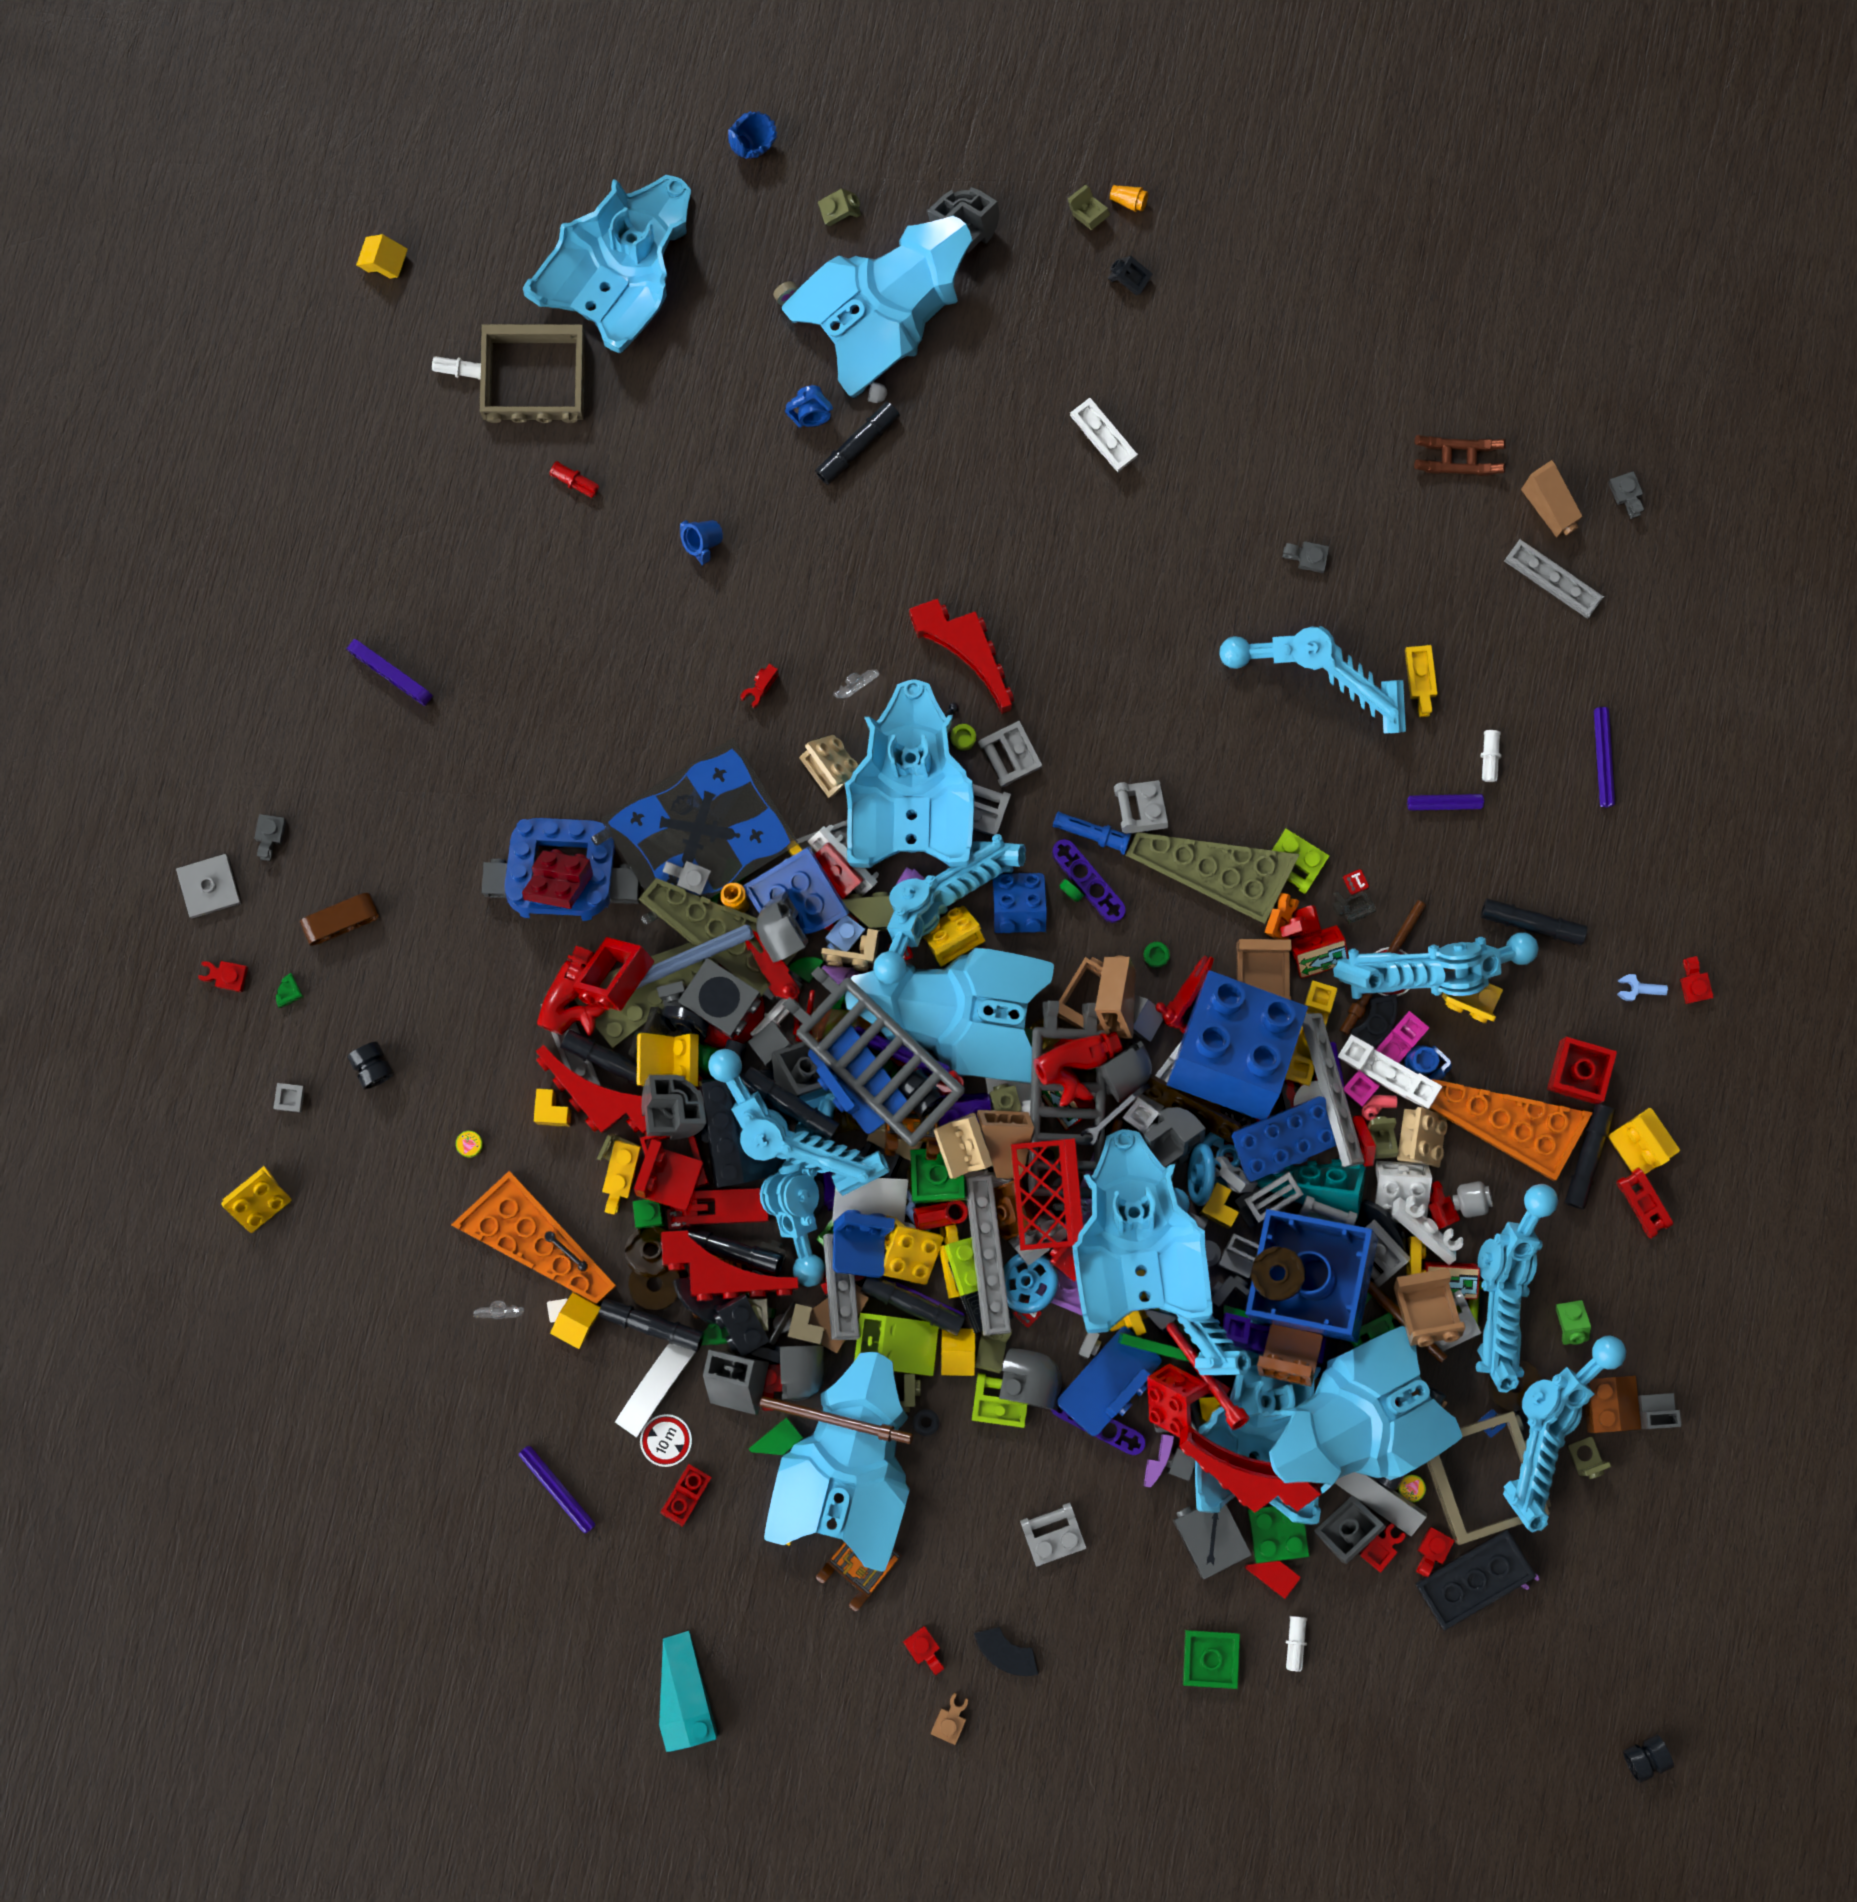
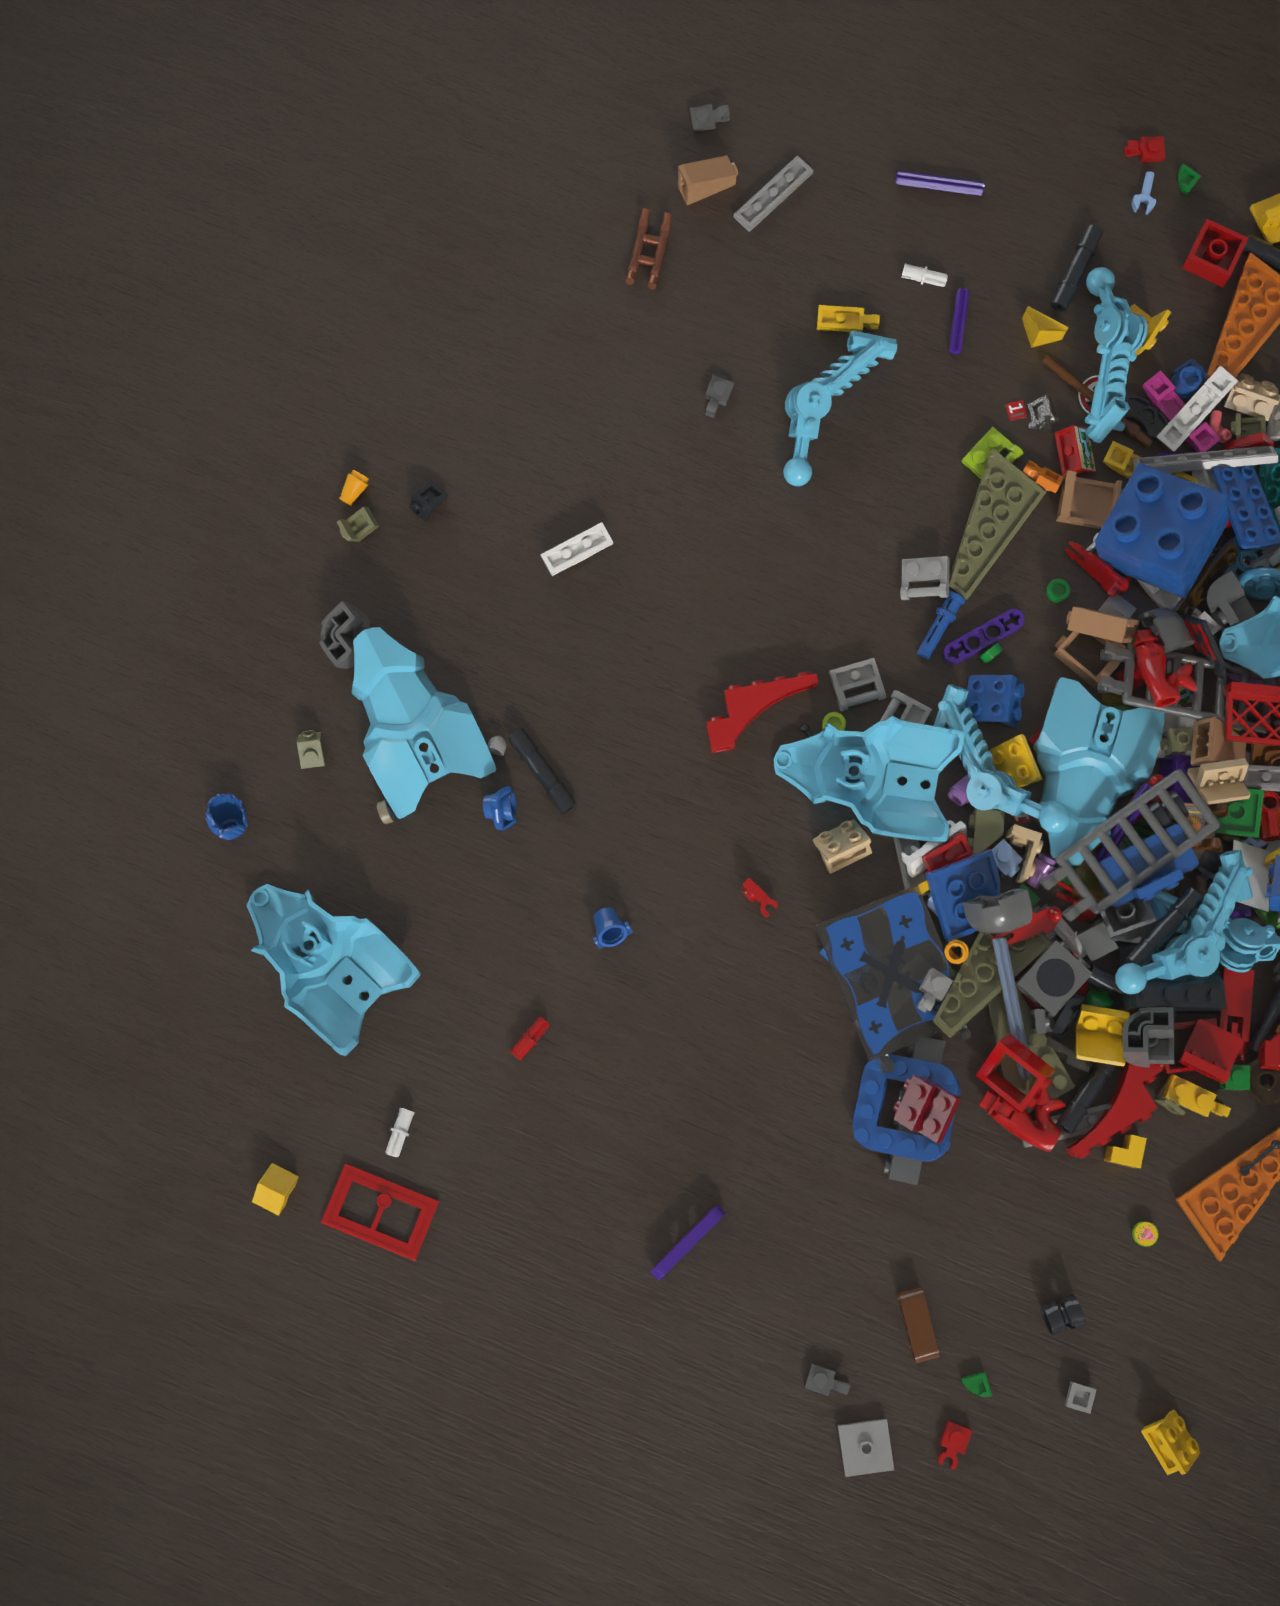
camera: 80 degrees left, 0 degrees up
(399, 368) = (389, 1189): none -> red door
(531, 334) = (381, 1053): dark tan window -> none
(855, 683) = (769, 810): clear piece -> none
(1303, 923) = (1052, 458): red bracket -> none
(1452, 892) = (1042, 328): none -> yellow slope
(1668, 1033) = (1187, 179): none -> green tile

